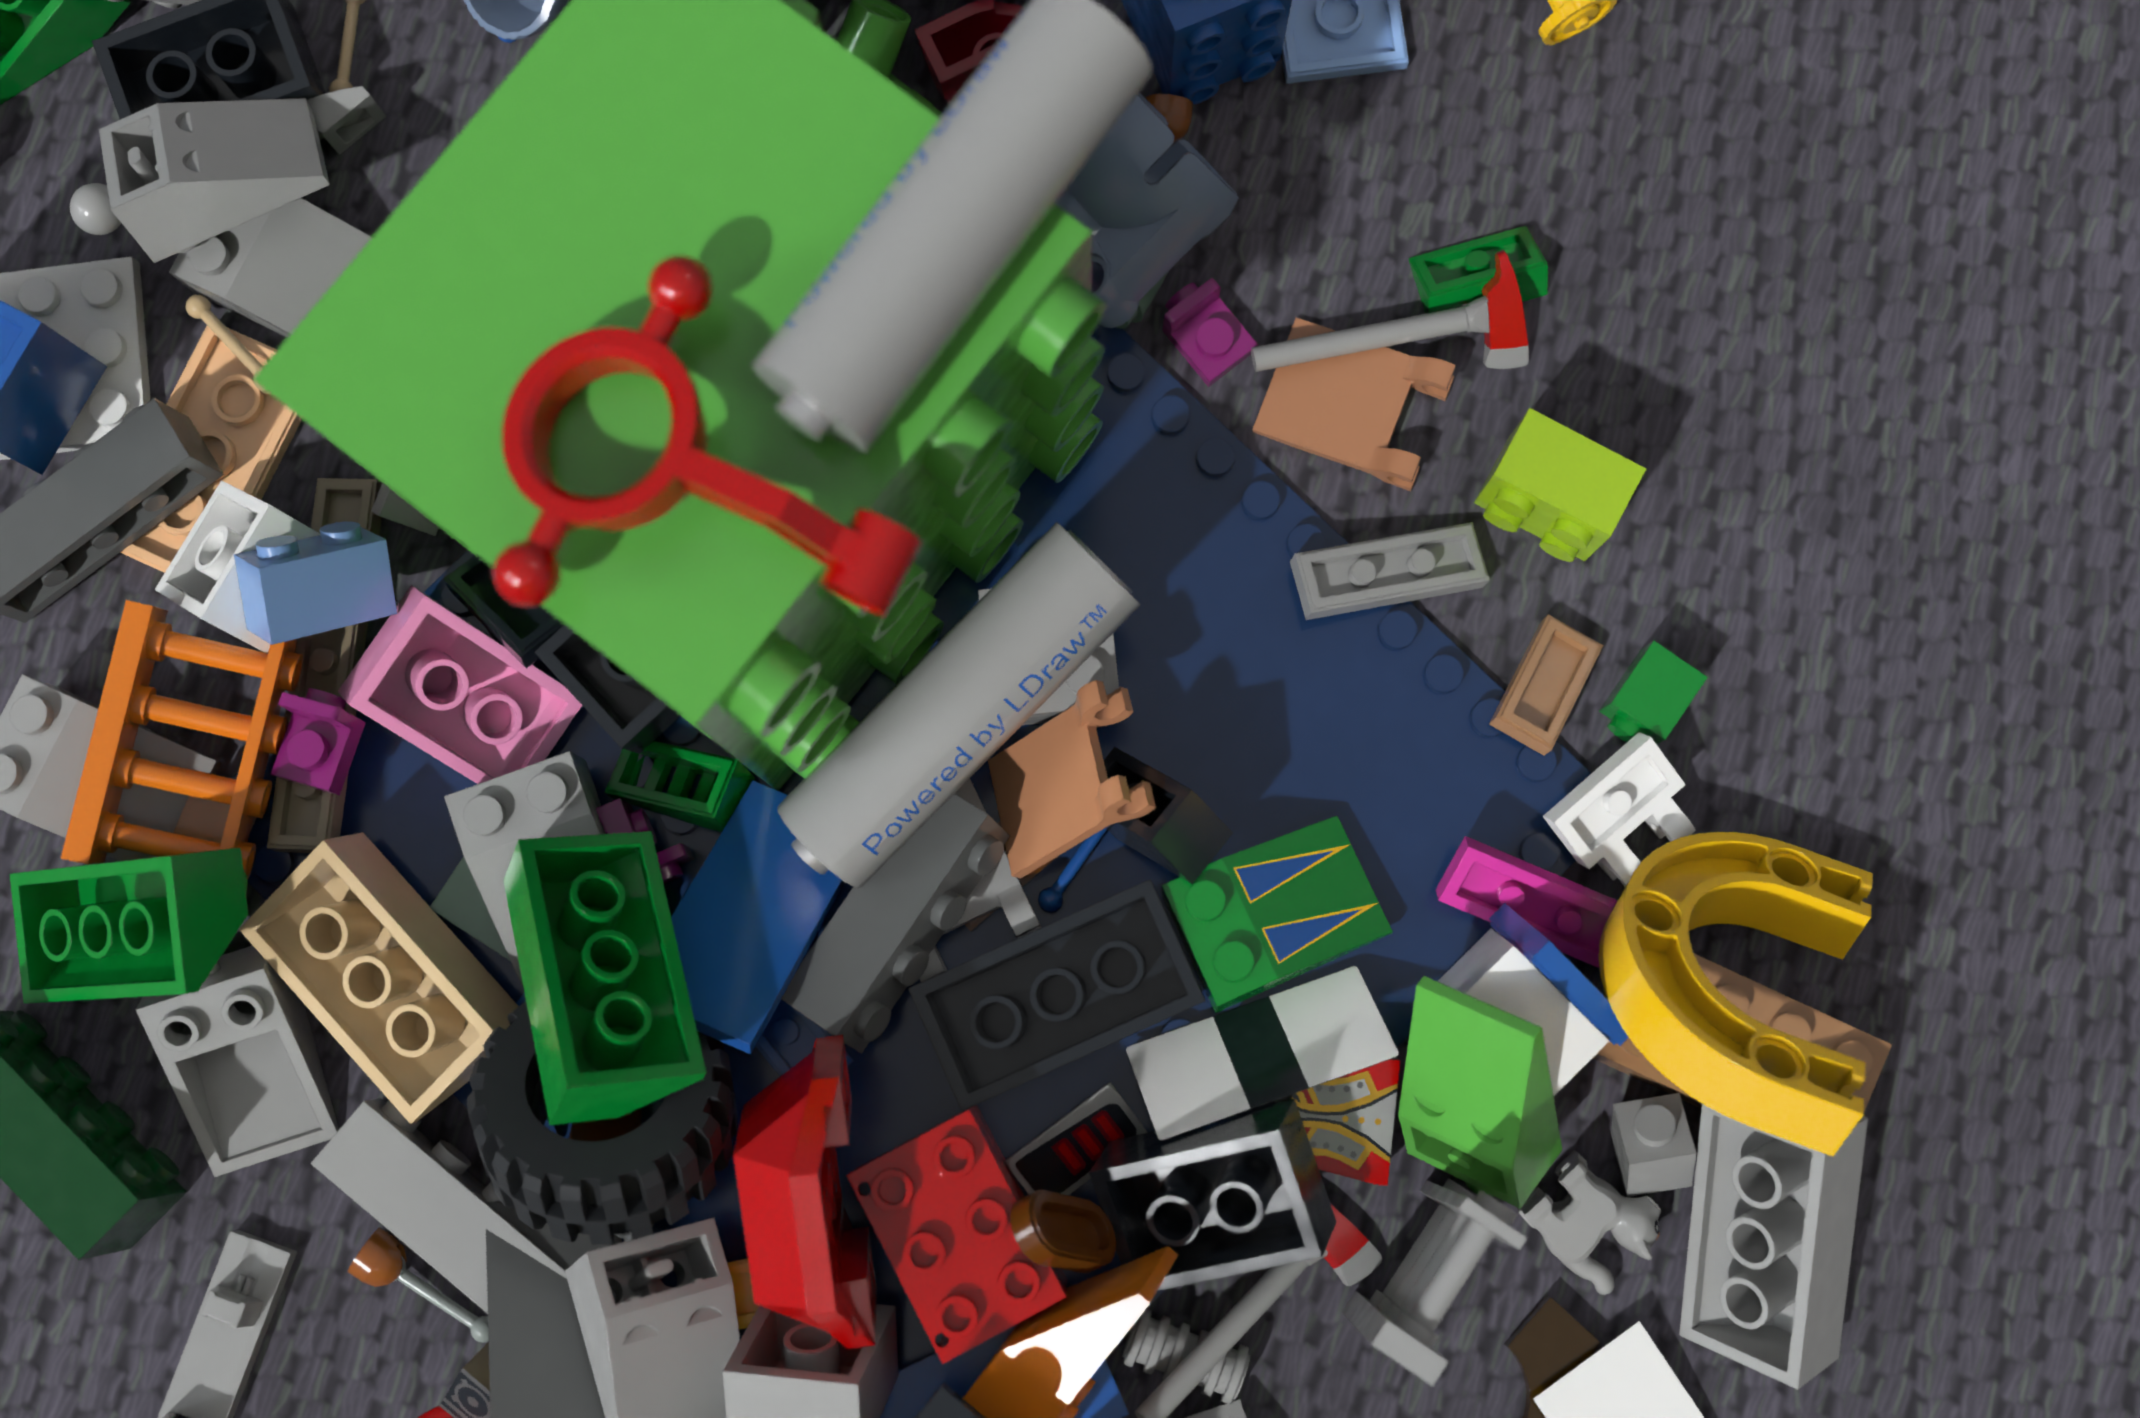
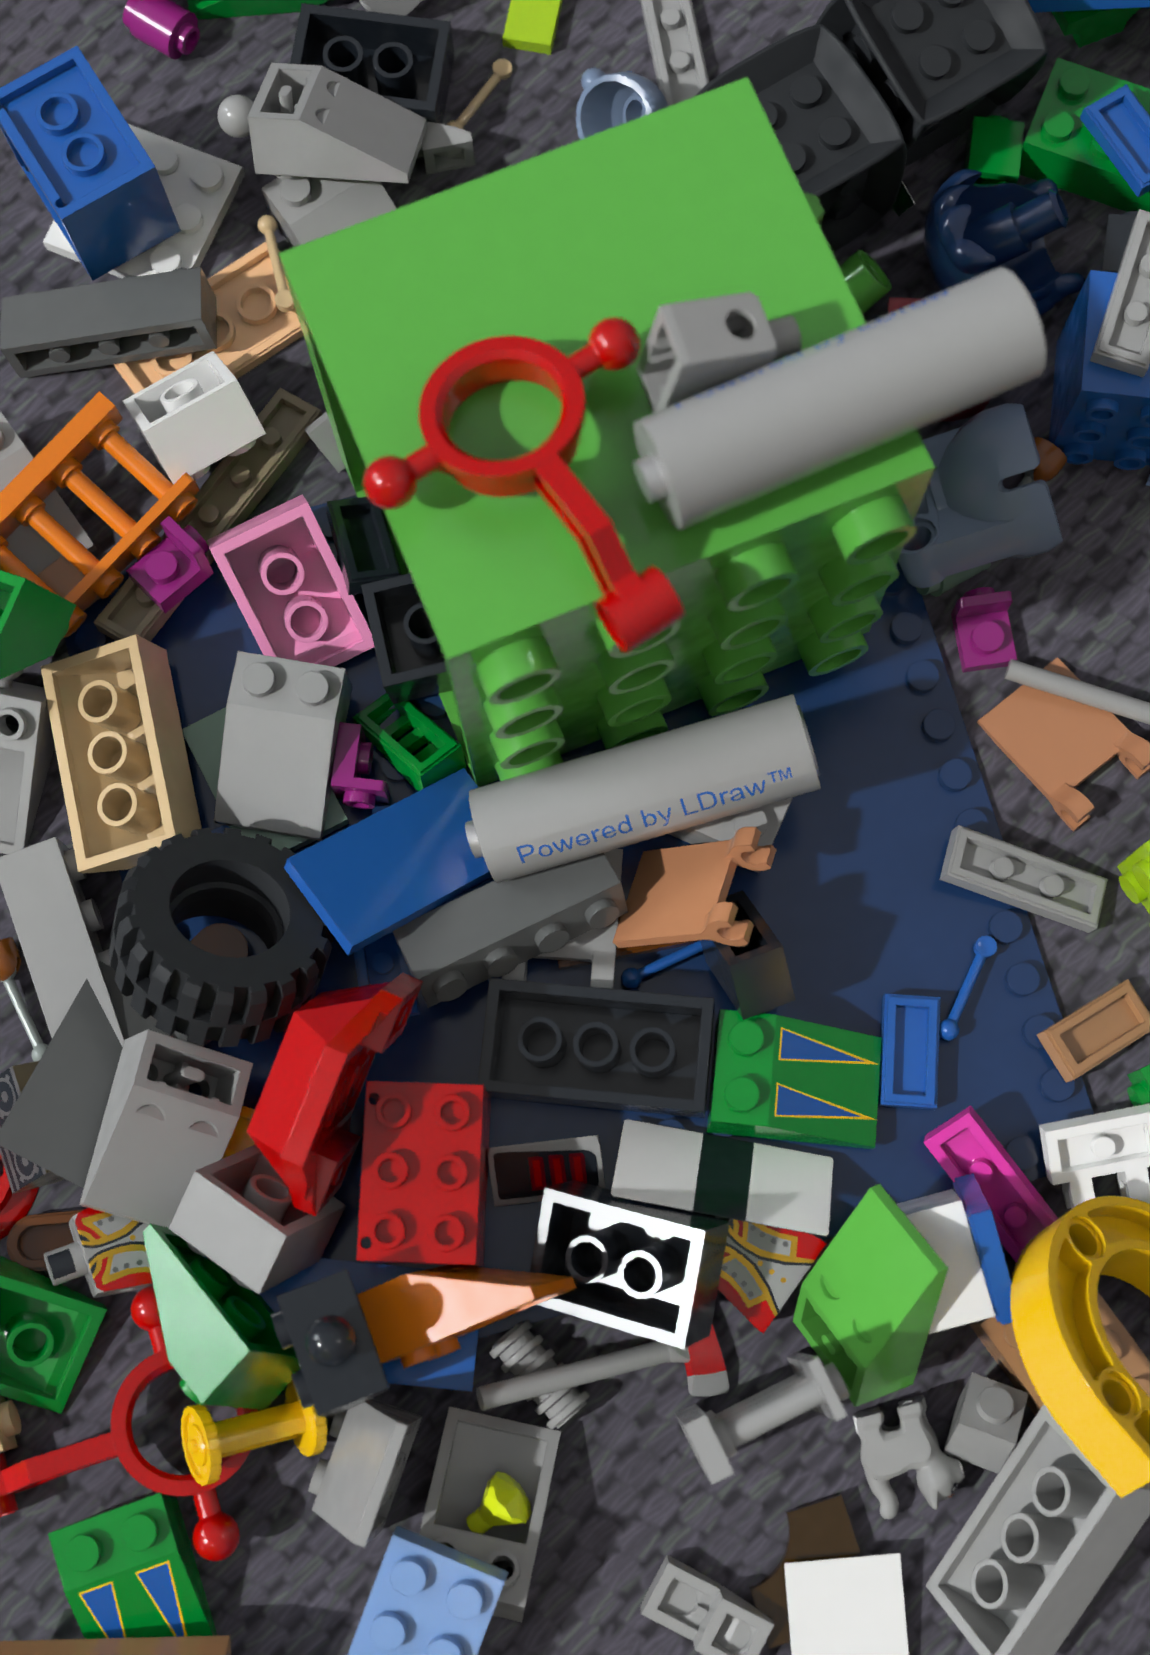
camera: 30 degrees right, 5 degrees down
(315, 582) = (236, 452): medium blue brick -> none
(601, 974) = (275, 834): green slope -> none
(787, 235) = (709, 344): none -> light grey torso
(1063, 1231) = (501, 1216): reddish brown tile -> none
(1372, 813) = (909, 1051): none -> blue tile
(1388, 664) = (983, 948): none -> blue hinge

